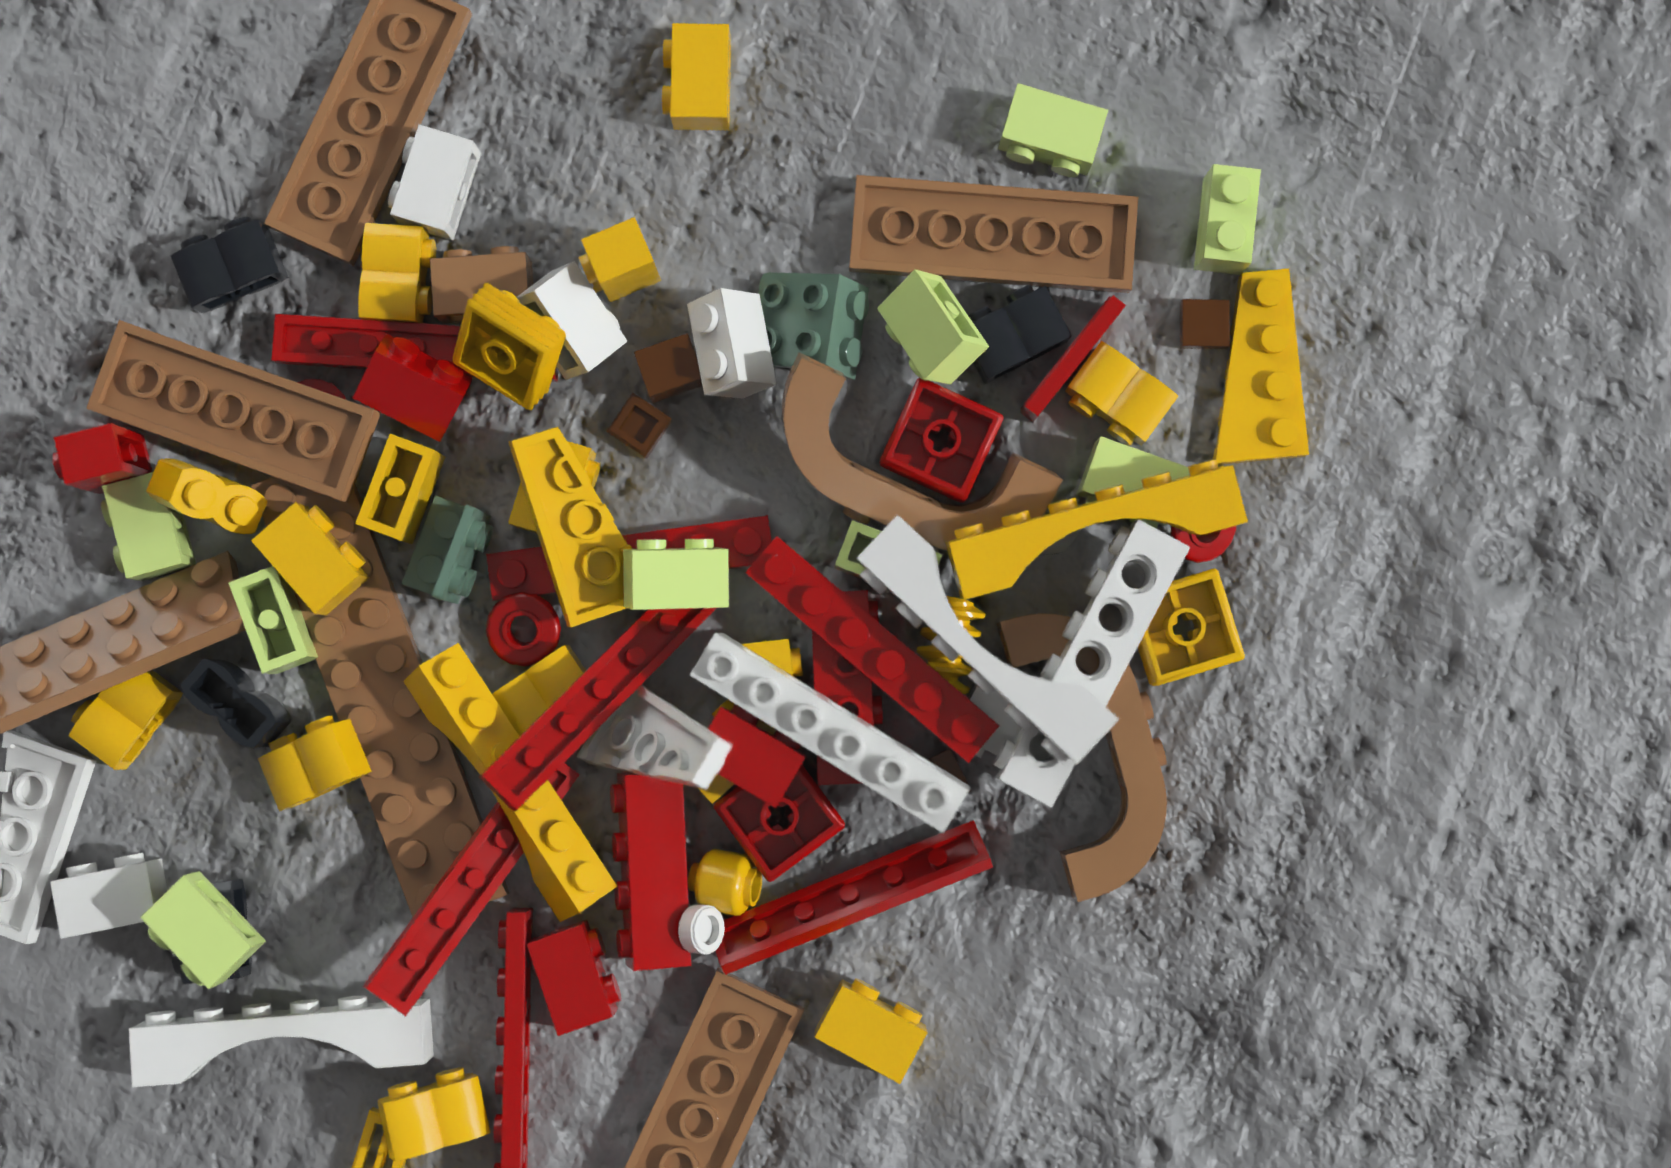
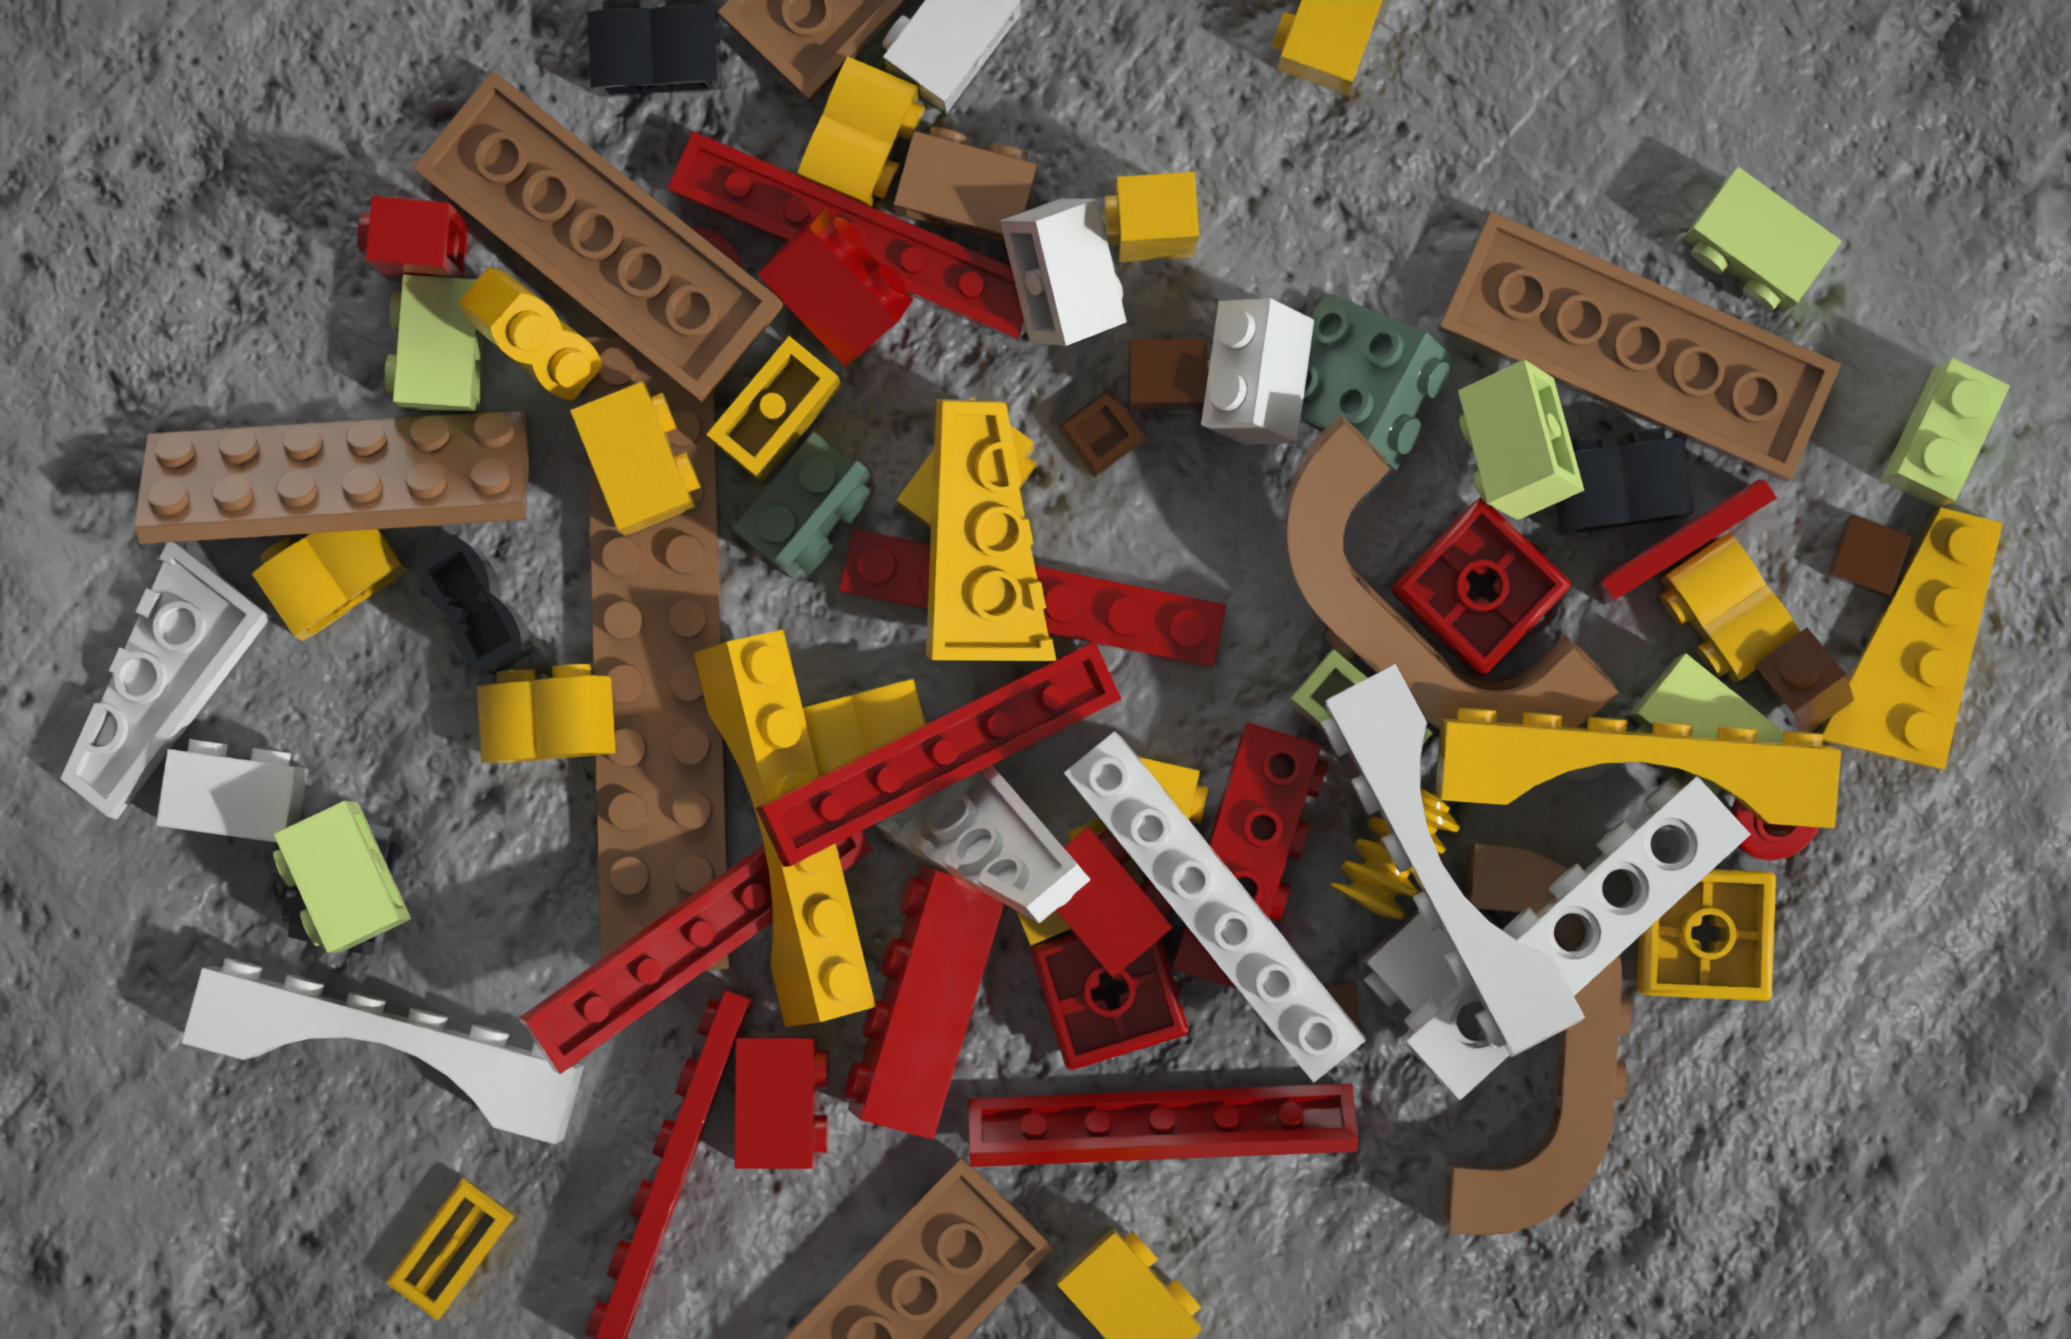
camera: 25 degrees right, 0 degrees up
(273, 621) = (558, 519): yellowish green brick -> none
(433, 1115) = (543, 1212): yellow brick -> none
(501, 637) = (841, 660): red piece -> none
(508, 345) = (977, 278): yellow brick -> none
(675, 576) = (1086, 643): yellowish green brick -> none
(701, 929) = (962, 1098): white tile -> none
(725, 881) = (1011, 1050): yellow head -> none
(872, 649) = (1302, 822): red plate -> none
(1190, 427) = (1804, 681): none -> reddish brown brick

